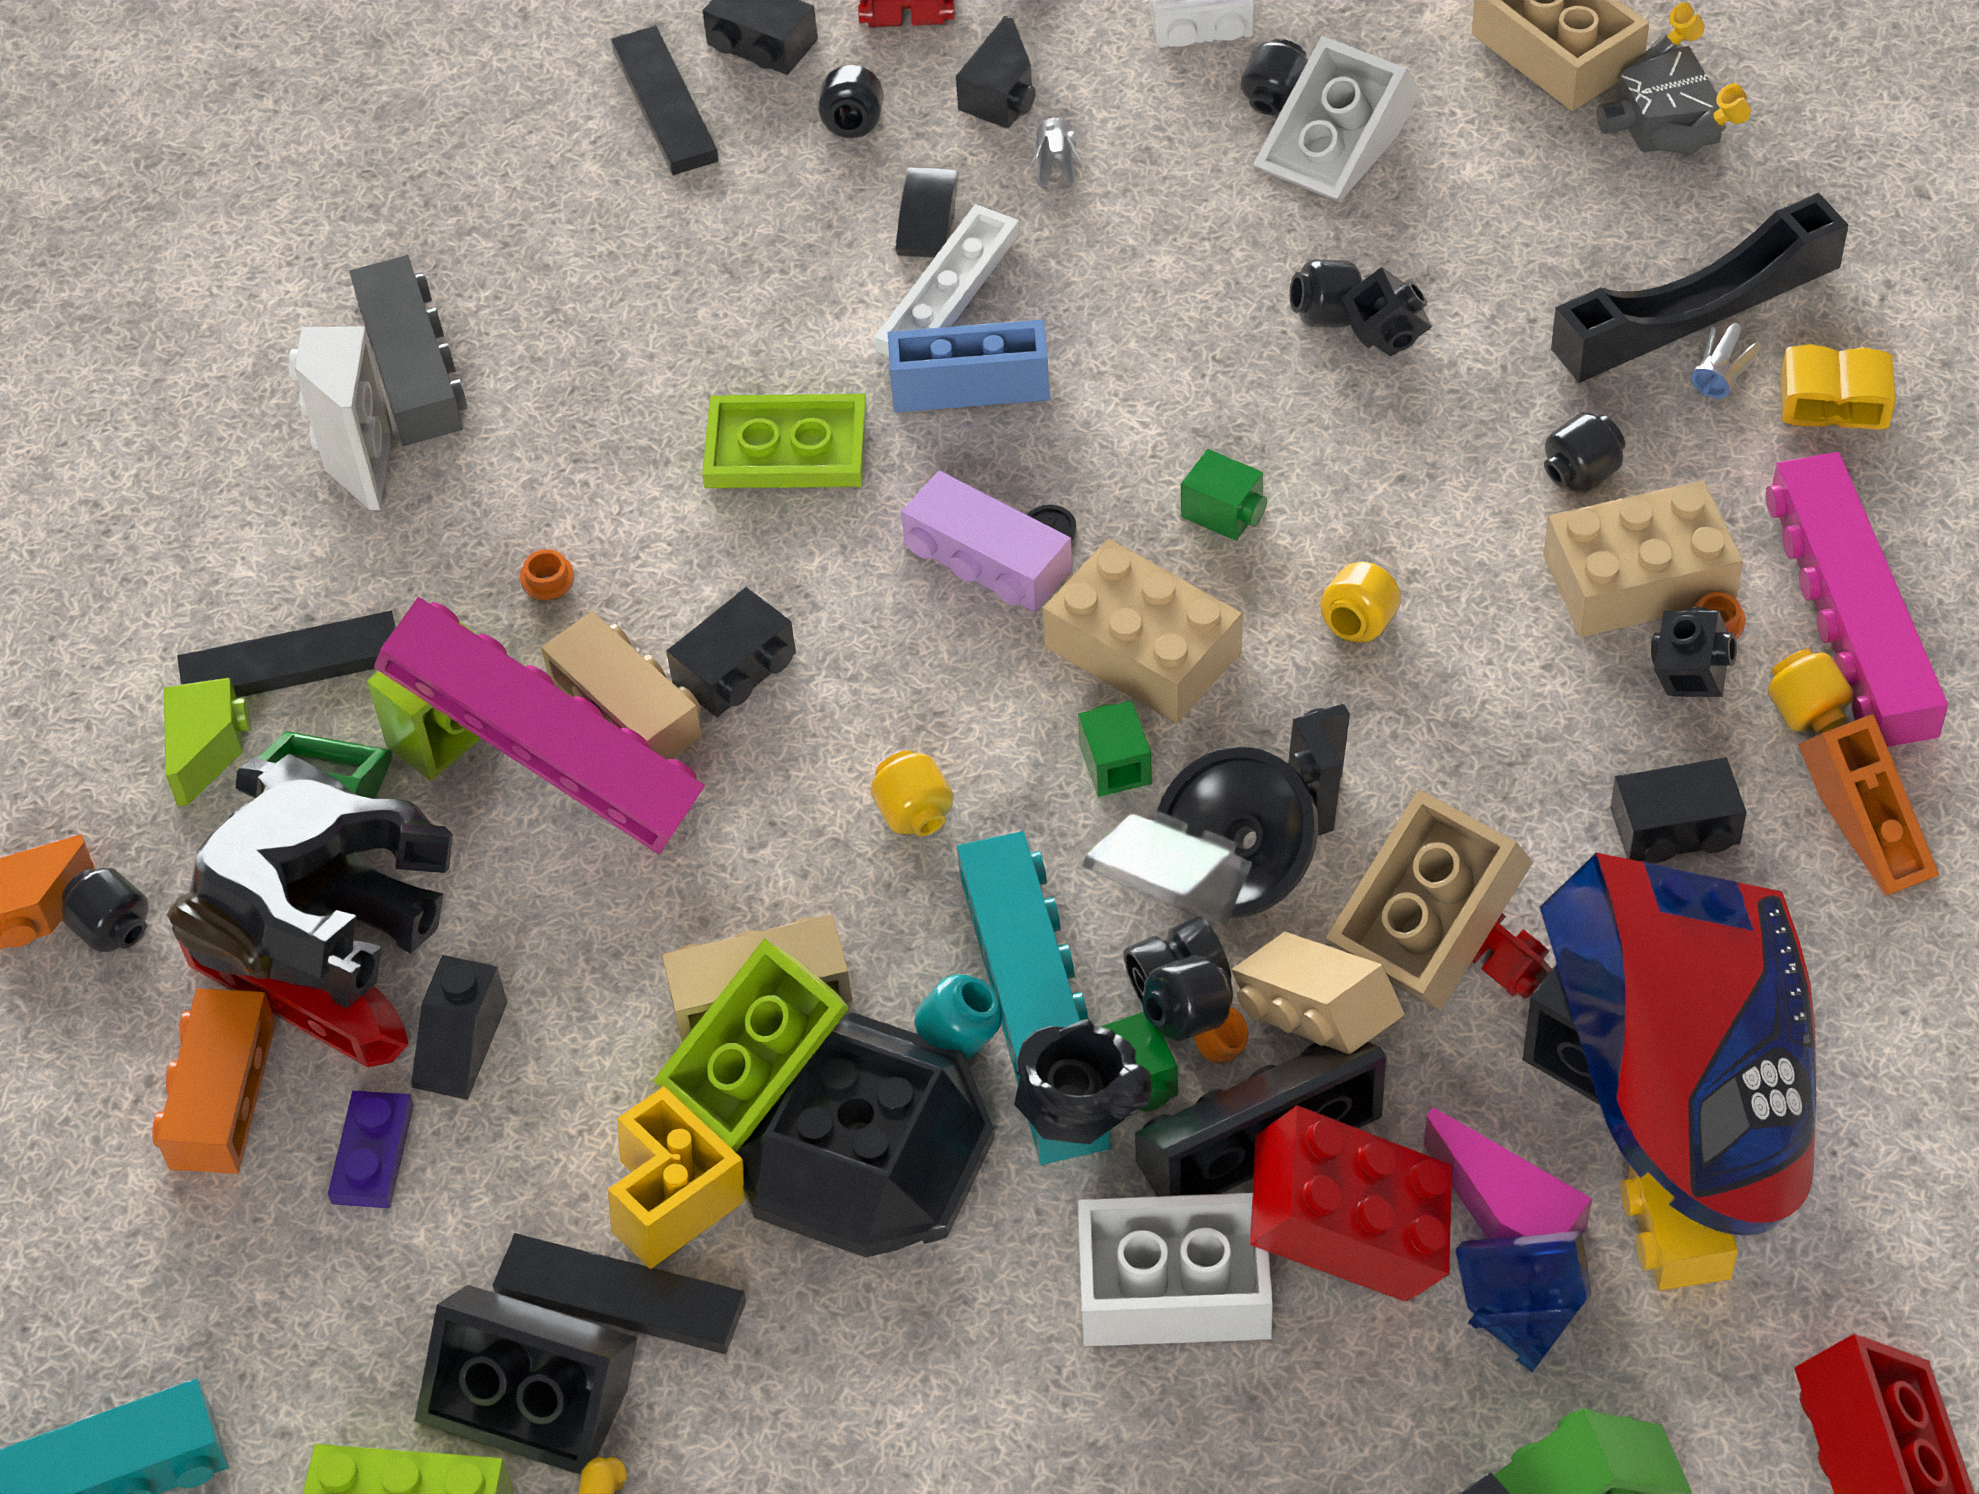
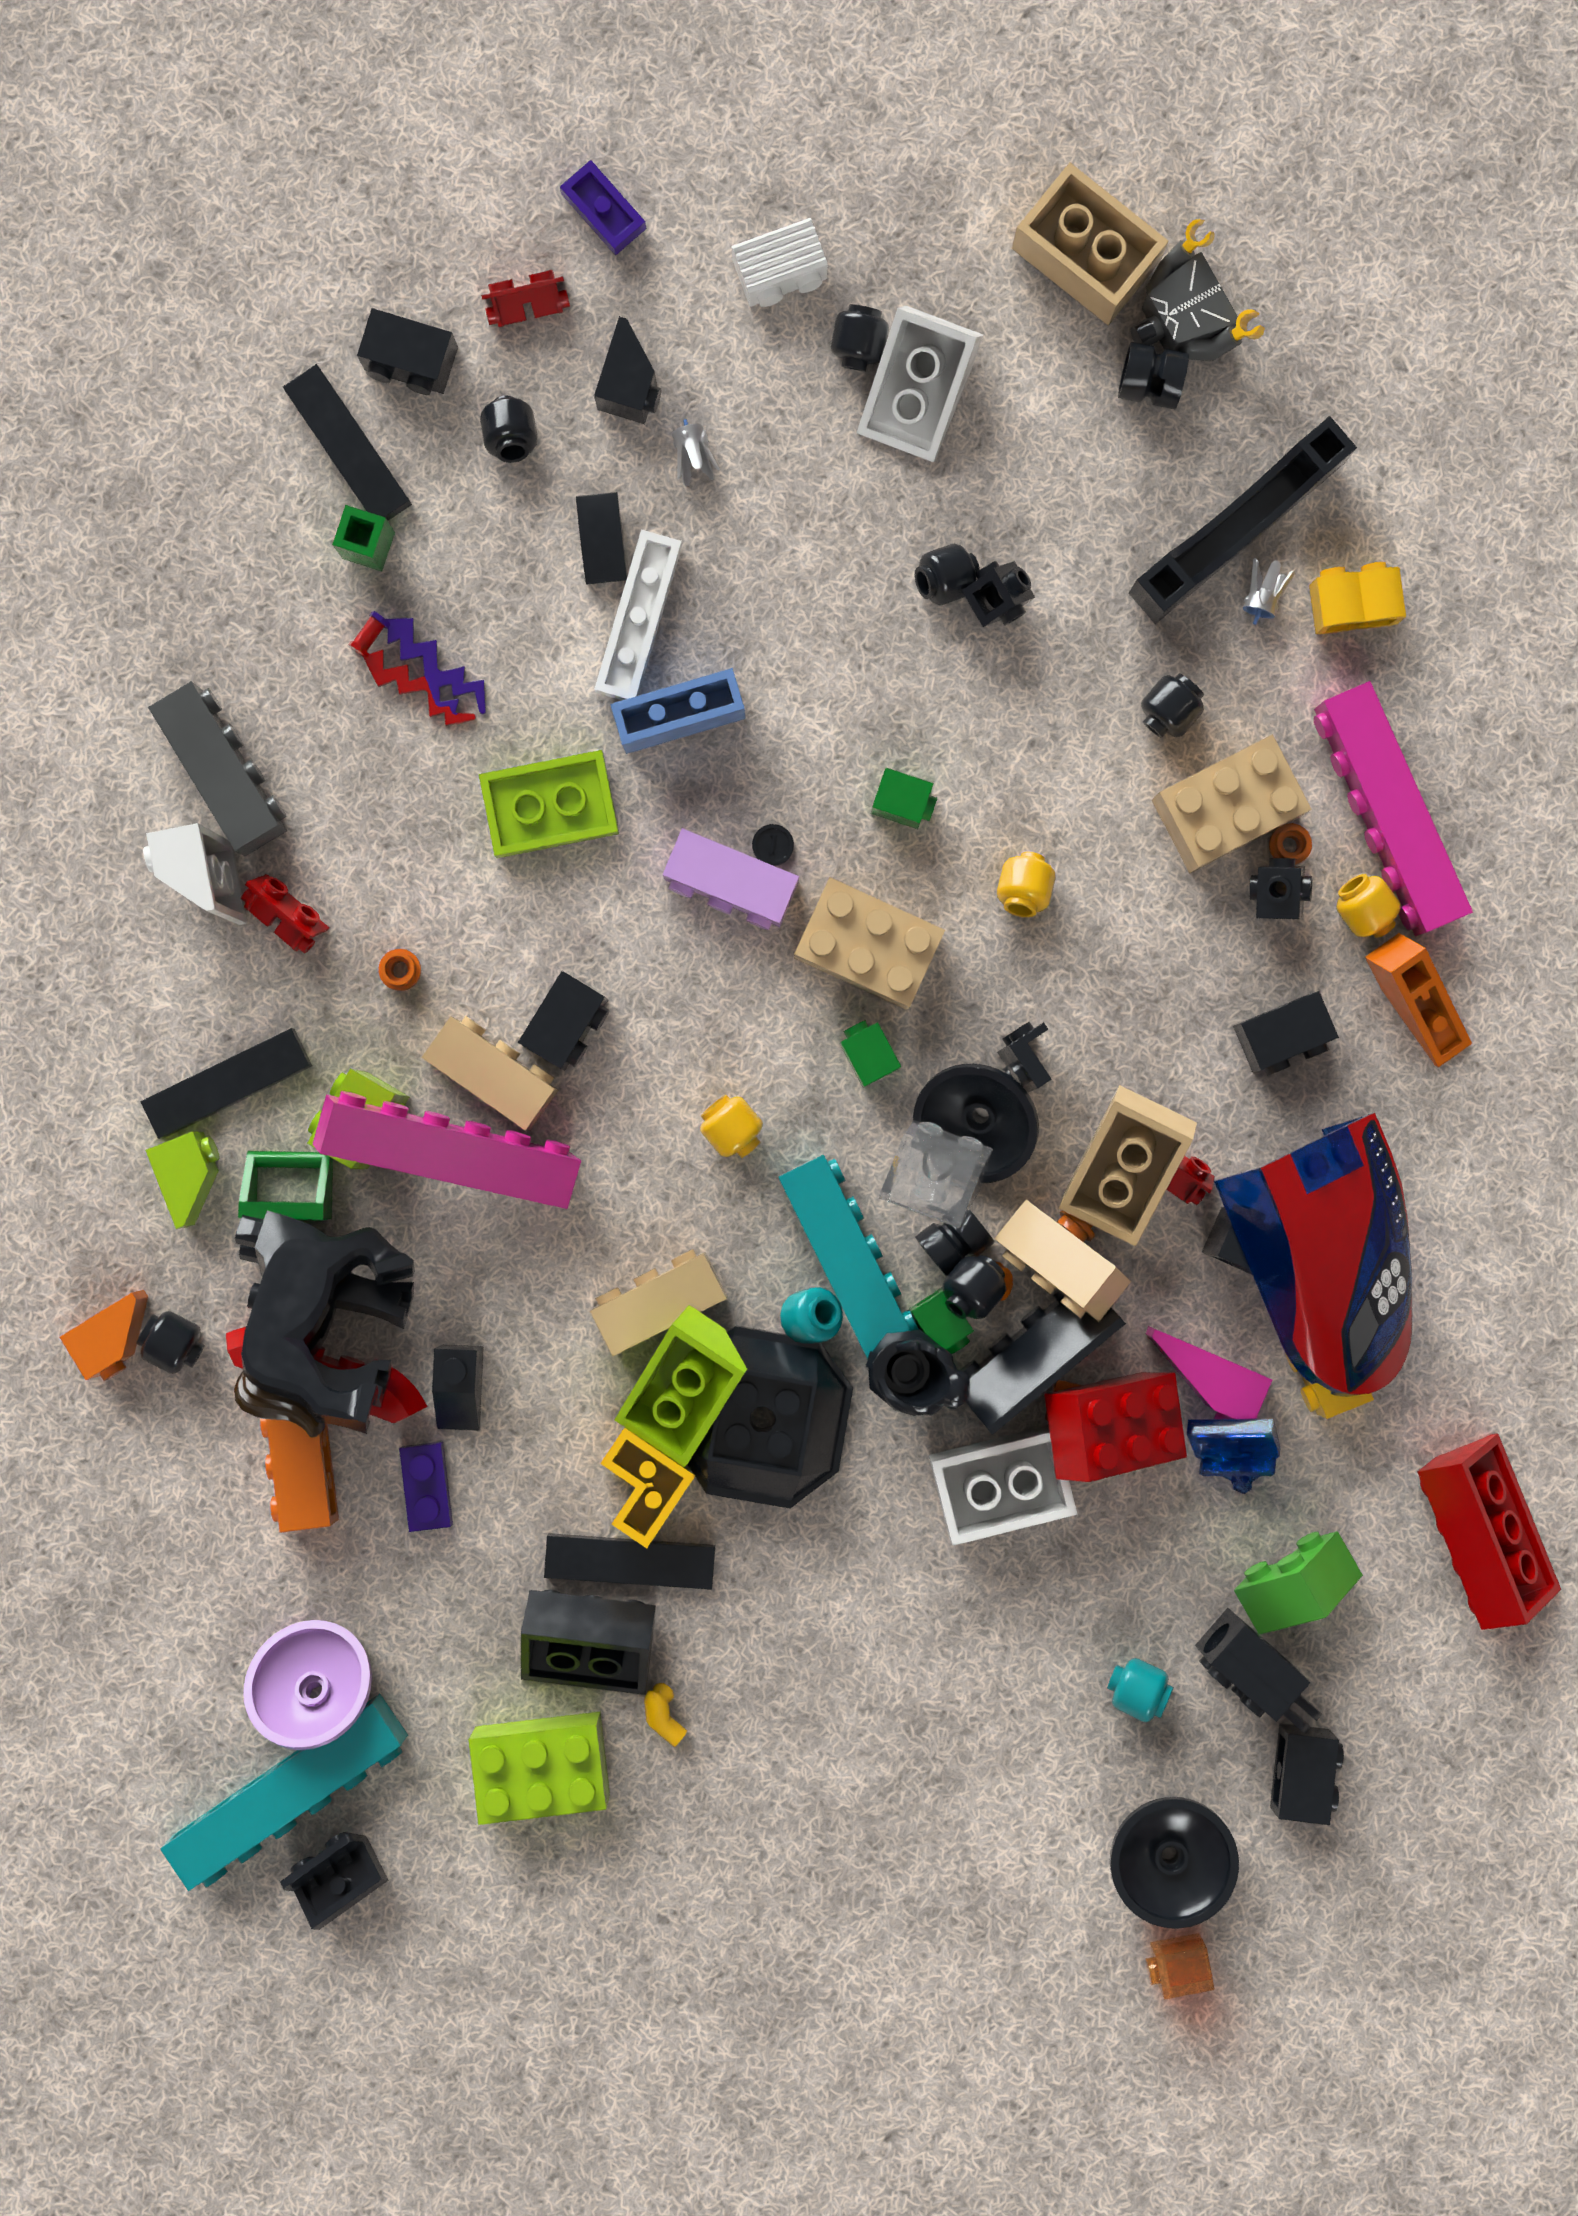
camera: 15 degrees left, 35 degrees up
(117, 1341) = (290, 1668): none -> lavender dish
(440, 509) = (270, 899): none -> red hinge
(653, 164) = (363, 538): none -> green brick
(689, 310) = (433, 678): none -> piece
(1598, 143) = (1138, 378): none -> black wheel

